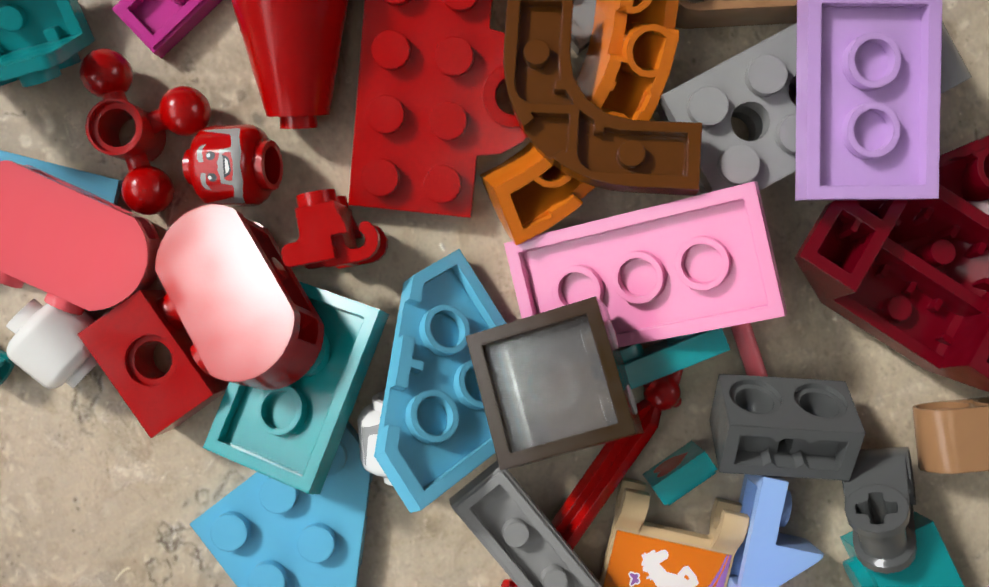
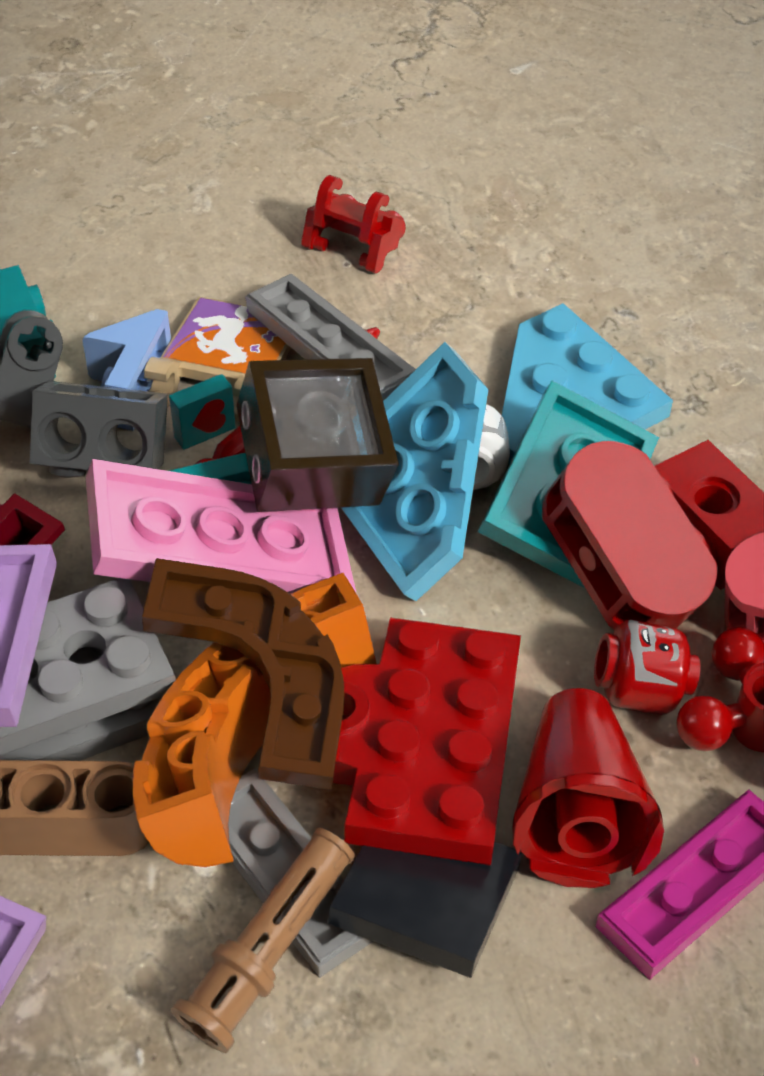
camera: 175 degrees left, 40 degrees down
(330, 234) = (535, 589): red piece -> none

